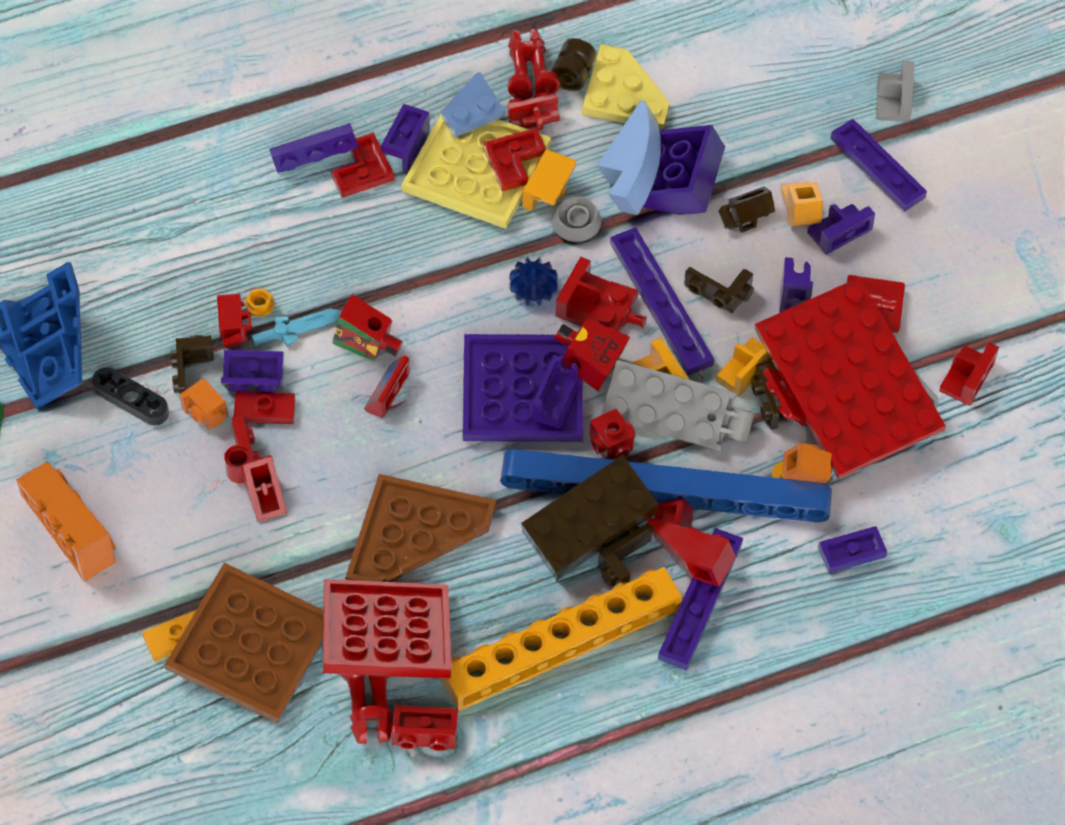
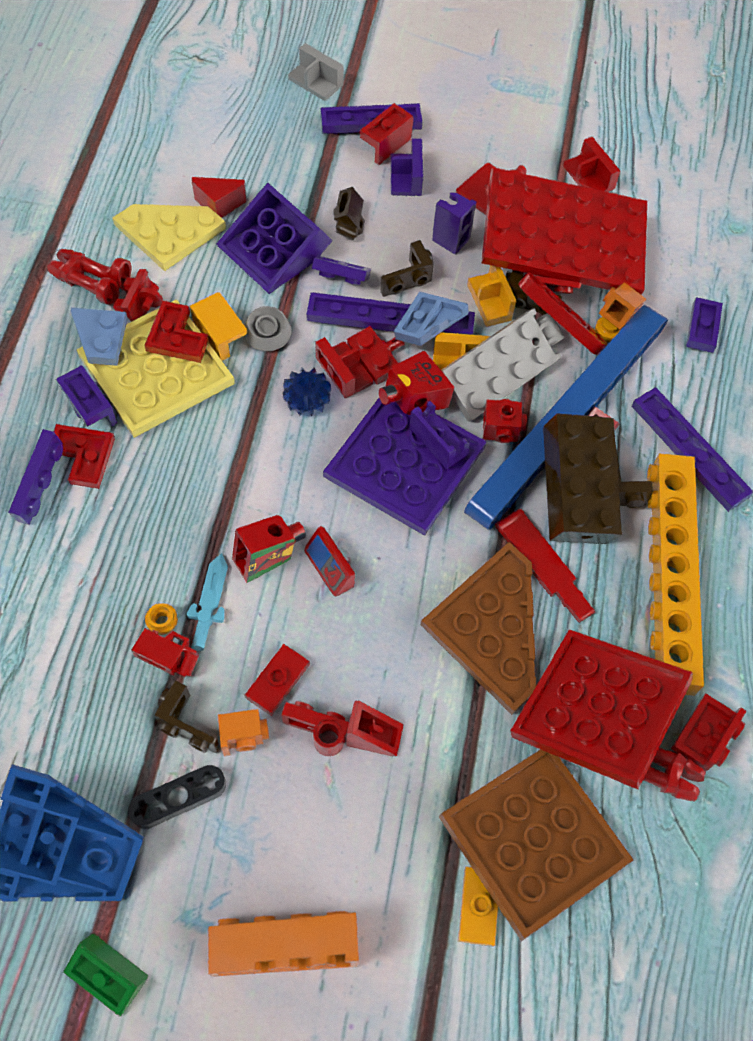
camera: 60 degrees left, 5 degrees up
(253, 369) = (234, 666): dark purple bracket -> none
(501, 540) = (546, 564): none -> red piece
(574, 63) = (117, 241): dark brown wheel -> none
(633, 160) = (249, 255): light blue slope -> none
(668, 323) = (429, 317): none -> medium blue wing
(681, 236) = (330, 267): none -> dark purple plate
(687, 104) = (219, 193): none -> red slope
(698, 553) = (660, 424): red slope -> none
(758, 422) = (562, 313): none -> red beam
(802, 203) = (376, 176): light orange brick -> none
(864, 185) = (388, 132): none -> red panel

